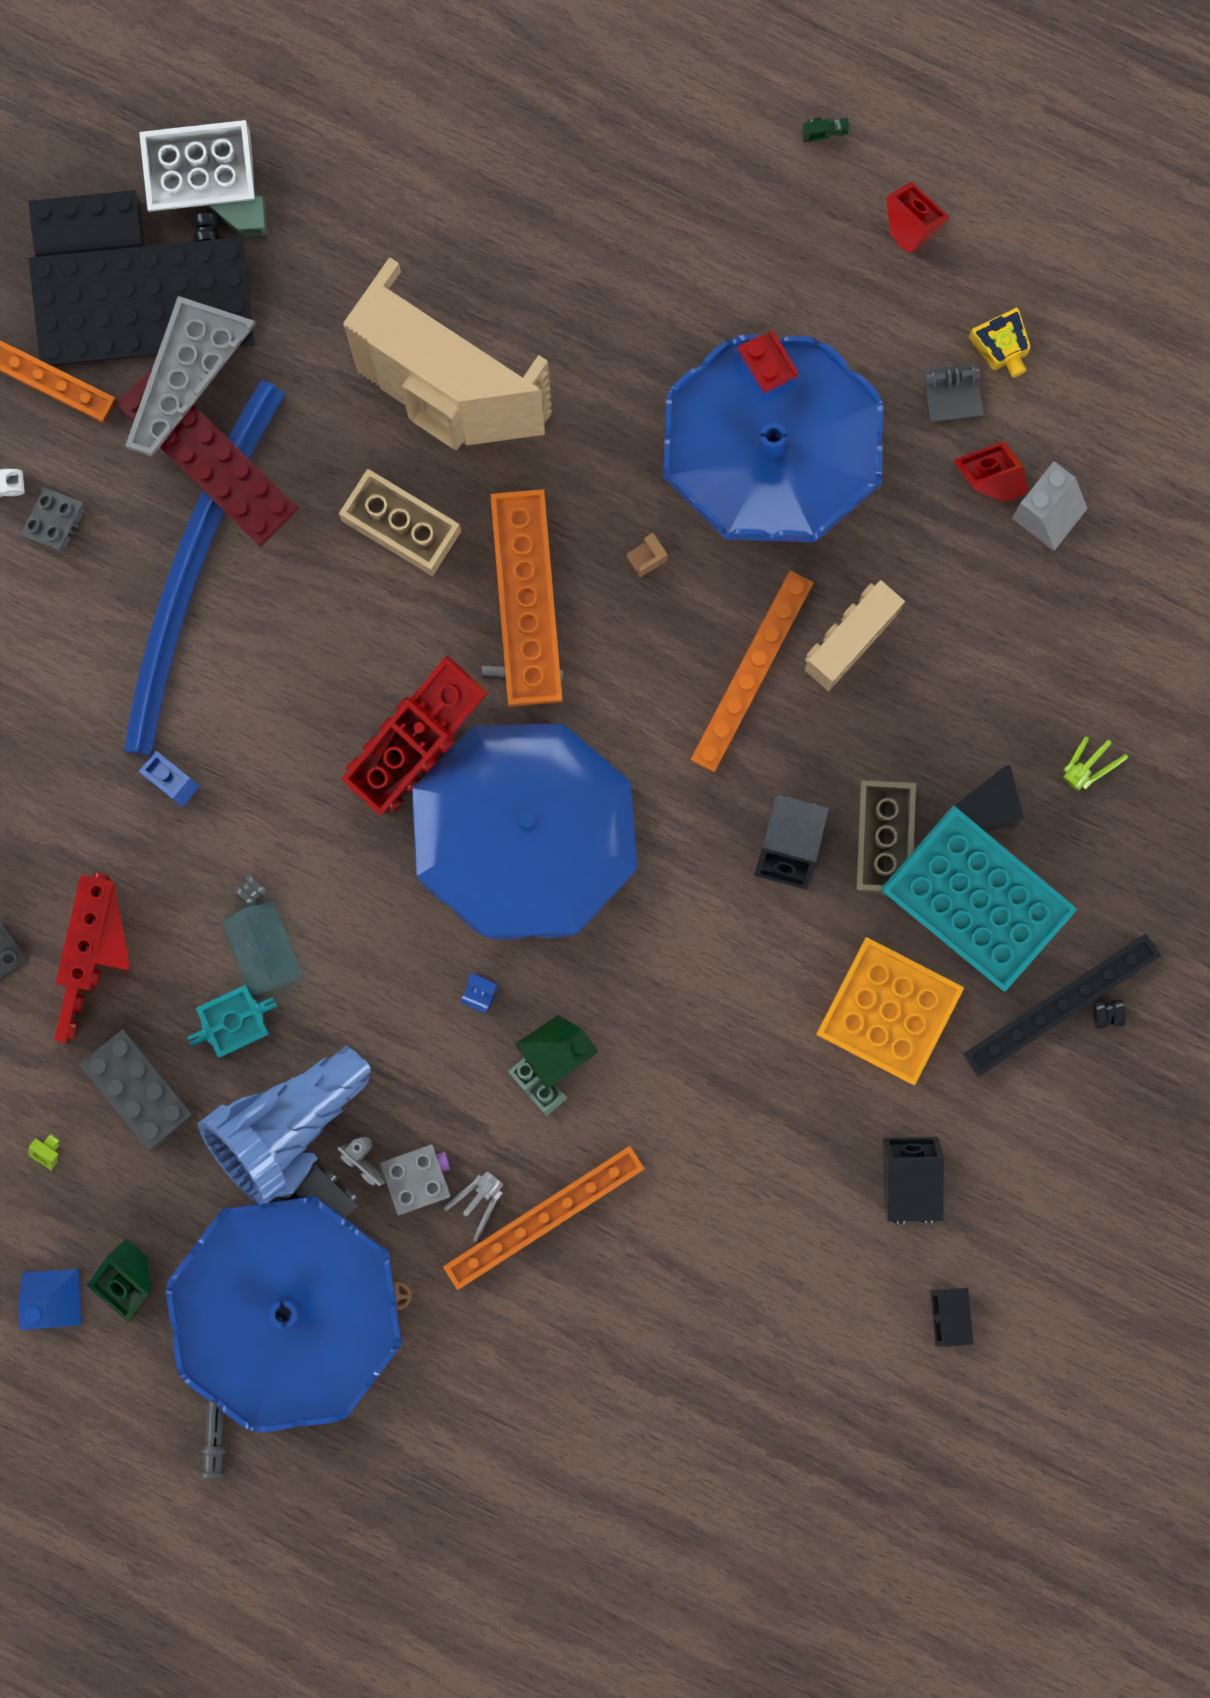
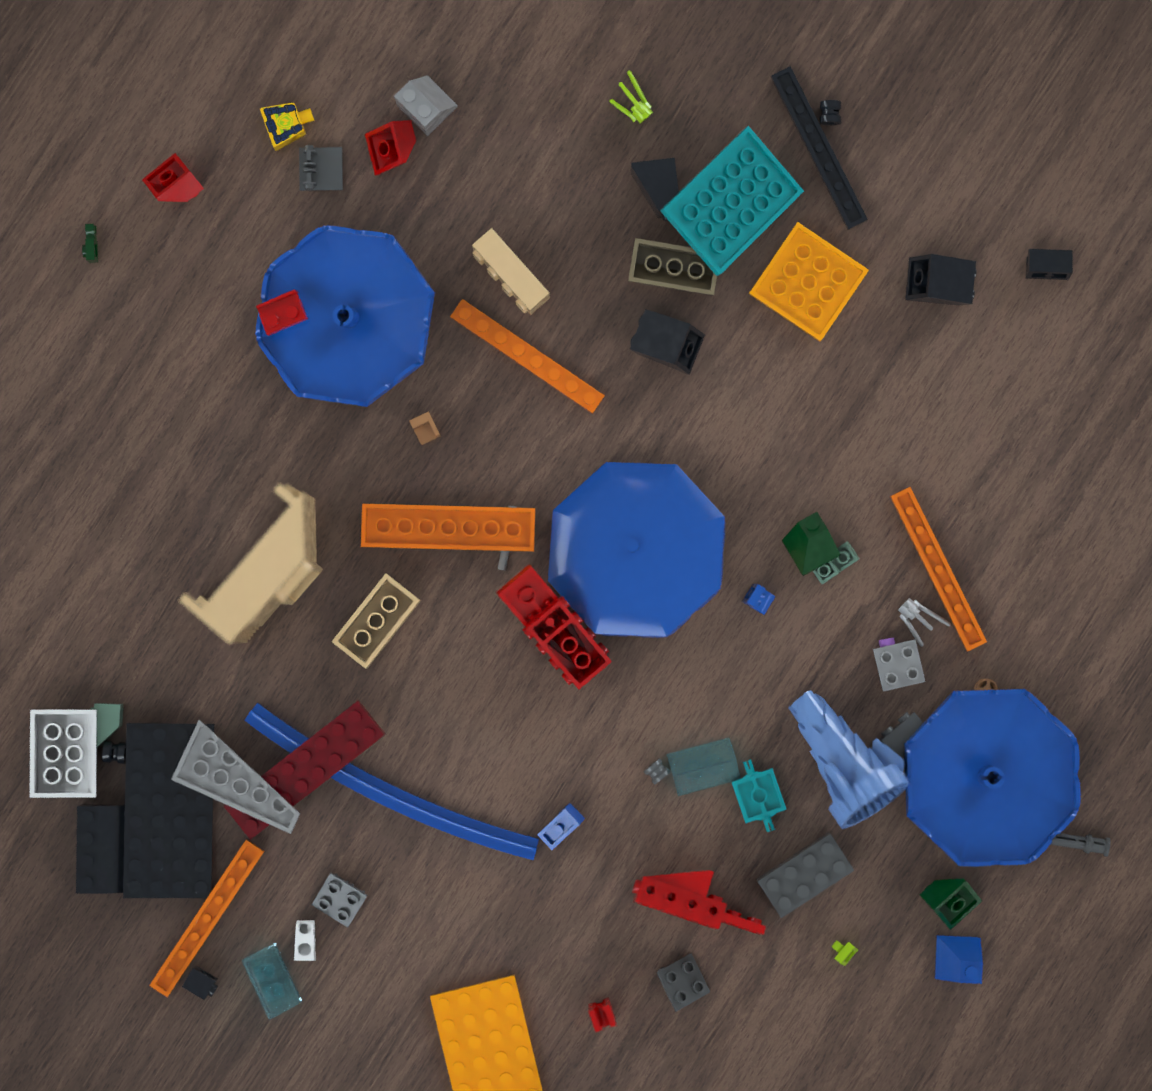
camera: 85 degrees left, 5 degrees up
(354, 1155) = (876, 710): light grey hinge -> none

